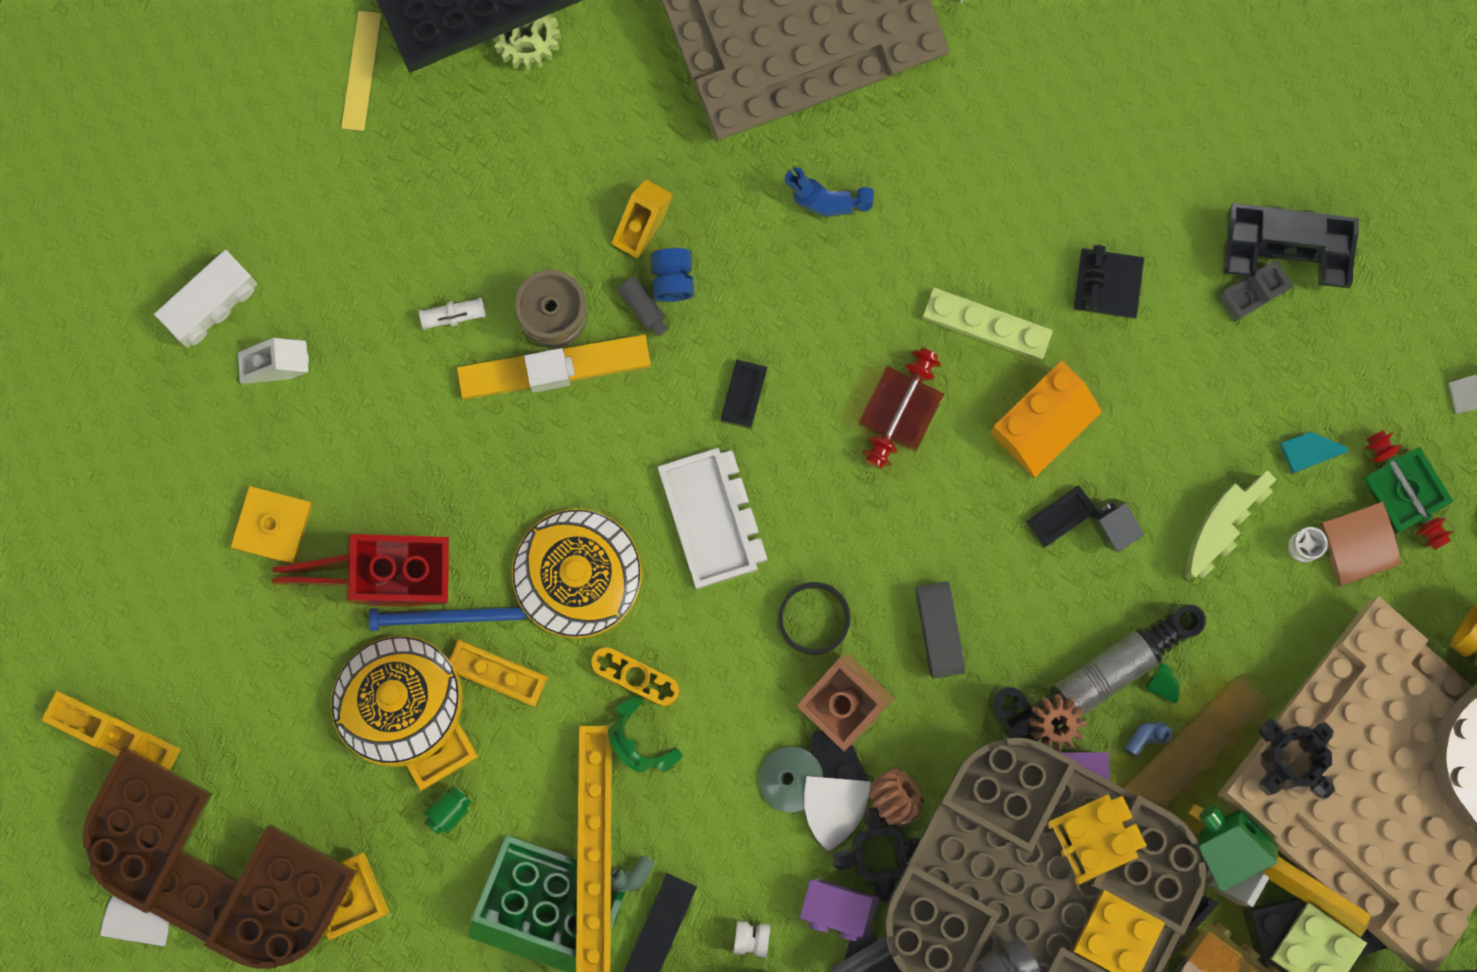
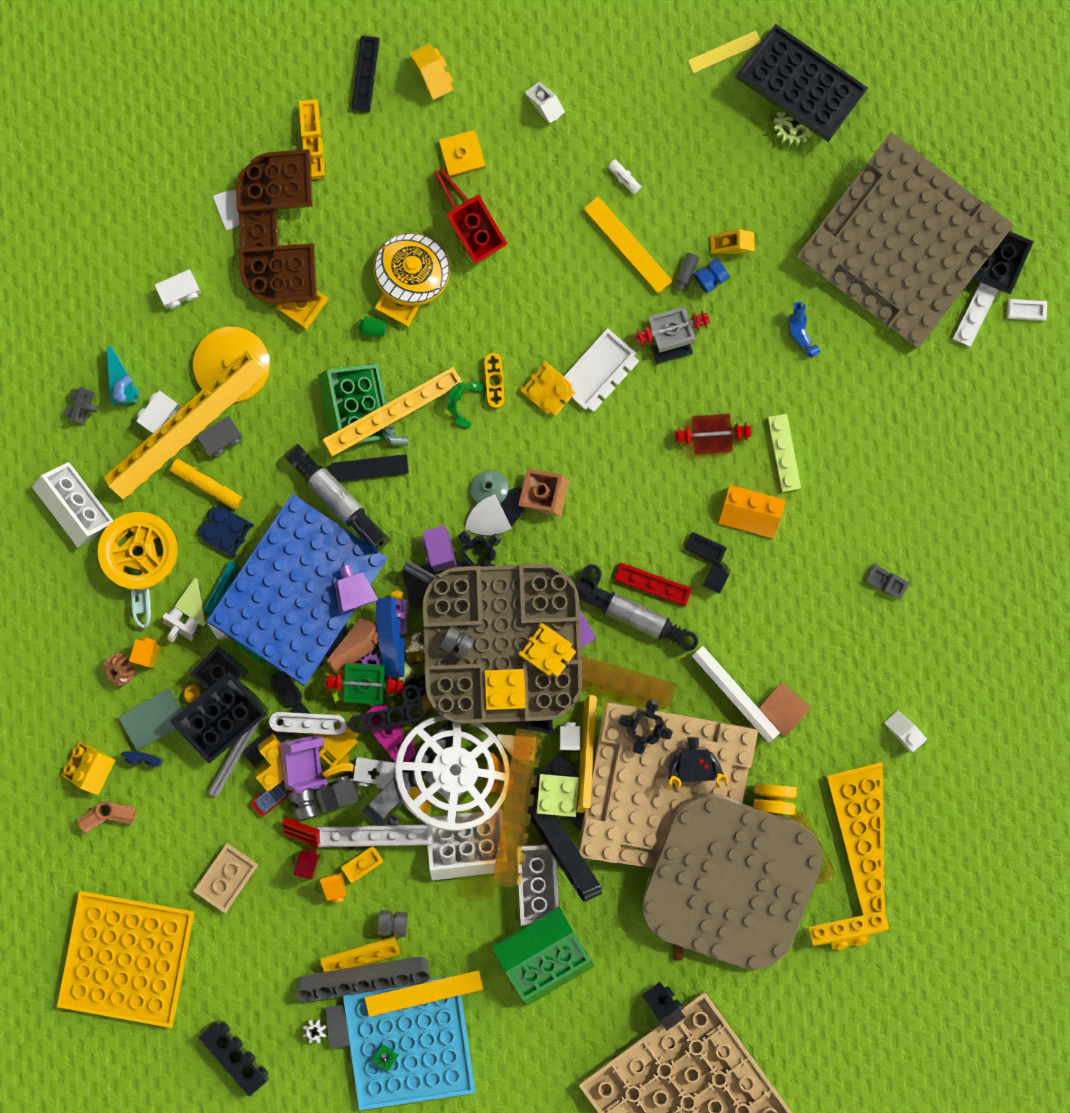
camera: 60 degrees right, 5 degrees up
(65, 597) = (365, 74): none -> black tile
(123, 495) = (431, 69): none -> yellow brick
(206, 299) = (556, 49): white brick -> none
(443, 616) = (446, 234): blue bar -> none
(497, 673) = (455, 311): yellow tile -> none
(534, 305) = (657, 214): dark tan wheel -> none
(549, 370) = (623, 243): white brick -> none
(576, 573) = (529, 320): dish -> none
(697, 604) = (549, 389): none -> yellow plate
(715, 375) = (672, 329): none -> light grey plate
(751, 939) = (399, 514): white wheel -> none
(822, 586) = (583, 434): black tyre -> none
(896, 797) = (511, 545): nougat gear -> none
(940, 630) = (609, 519): dark grey beam -> none
(1069, 716) = (591, 596): nougat gear -> none
(1070, 623) = (653, 584): none -> red tile
(1108, 282) = (844, 503): black hinge -> none
(1148, 734) = (619, 655): medium blue arm -> none
(1164, 683) = (649, 649): green tile -> none
(1216, 532) = (743, 631): yellowish green slope -> none
(1234, 847) = (584, 722): green torso -> none
(1291, 236) = (925, 582): black bracket -> none
(1303, 598) = (735, 694): none -> white tile
(1309, 451) = (817, 657): teal tile -> none
(1313, 542) = (766, 679): white wheel -> none
(1390, 719) = (694, 765): none -> black torso
(1408, 489) = (826, 718): green plate -> none

